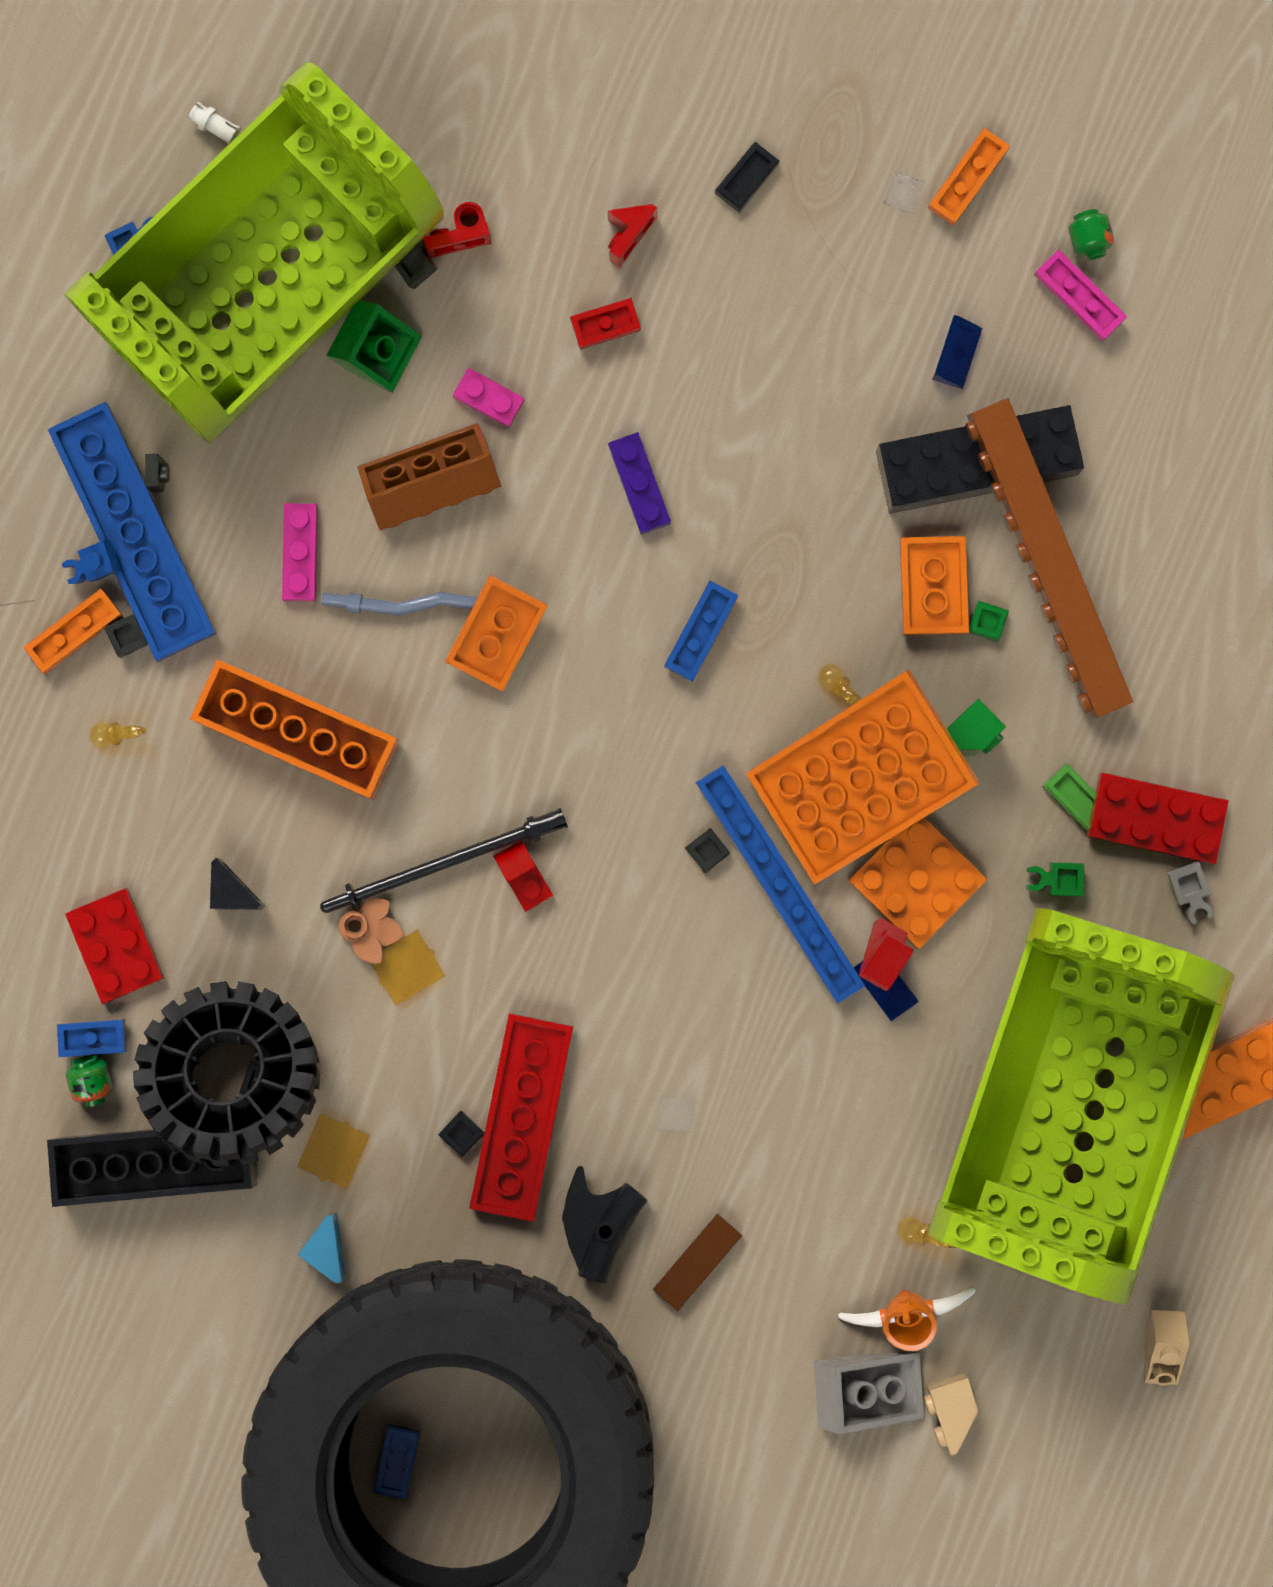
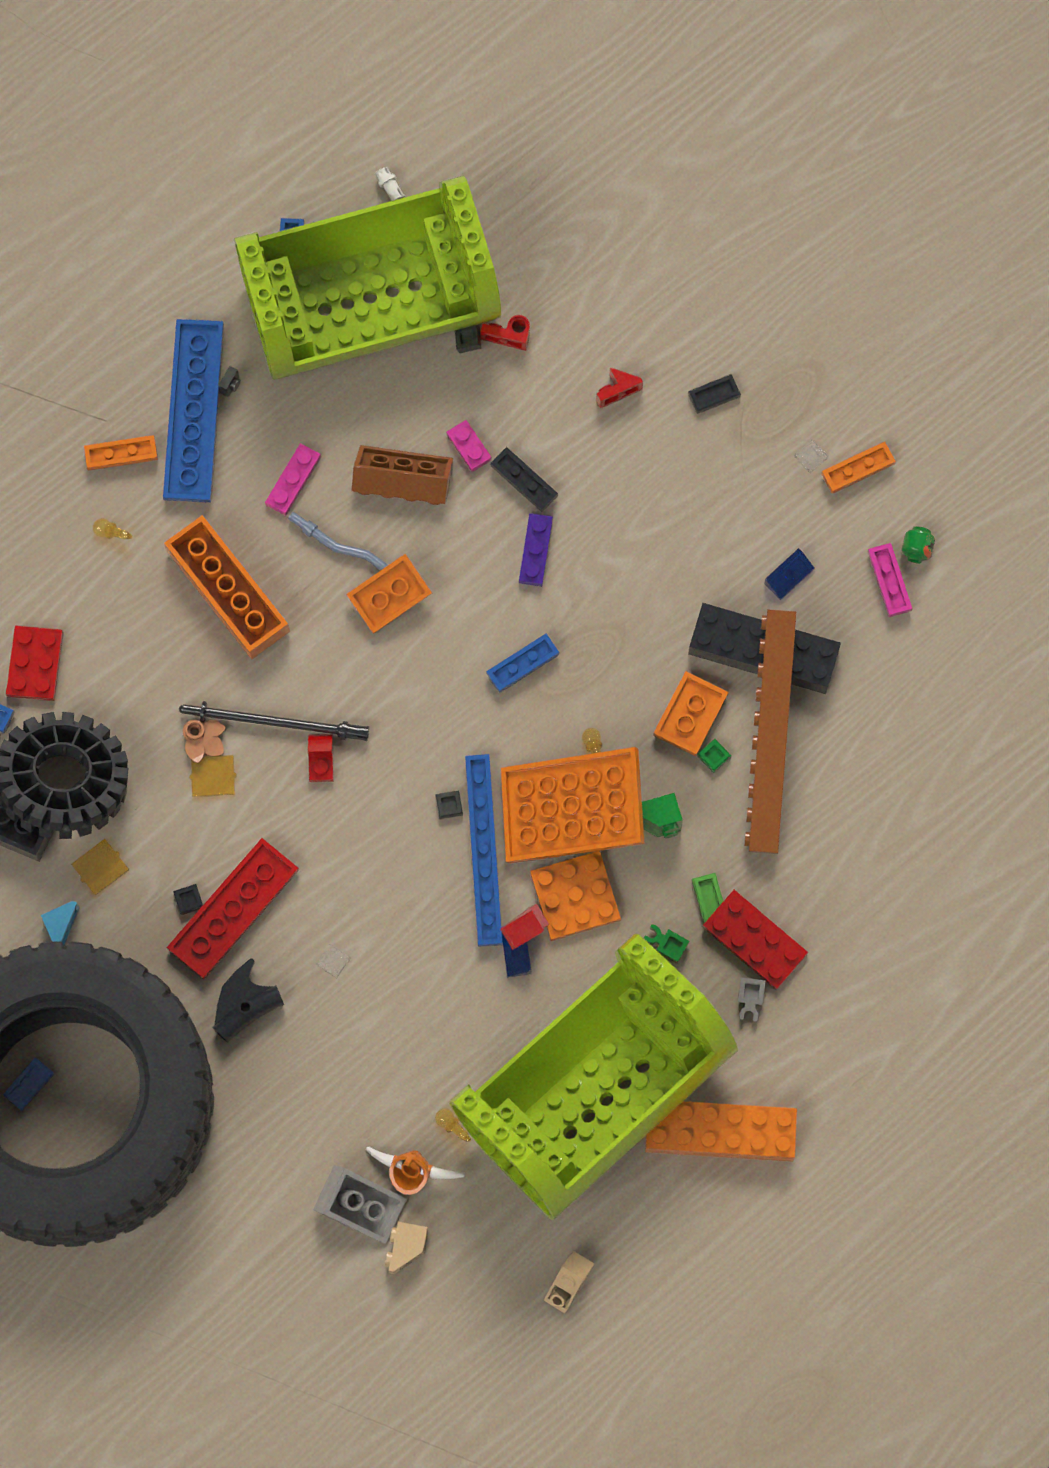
camera: 25 degrees right, 10 degrees down
(94, 563) = (159, 417): blue plate -> none
(126, 636) = (152, 473): pearl dark grey plate -> none
(229, 891) = (126, 666): black slope -> none
(374, 345) = (414, 374): green slope -> none
(578, 404) = (524, 479): none -> black plate
(605, 323) = (570, 438): red plate -> none
(697, 1262) = (294, 1063): reddish brown tile -> none

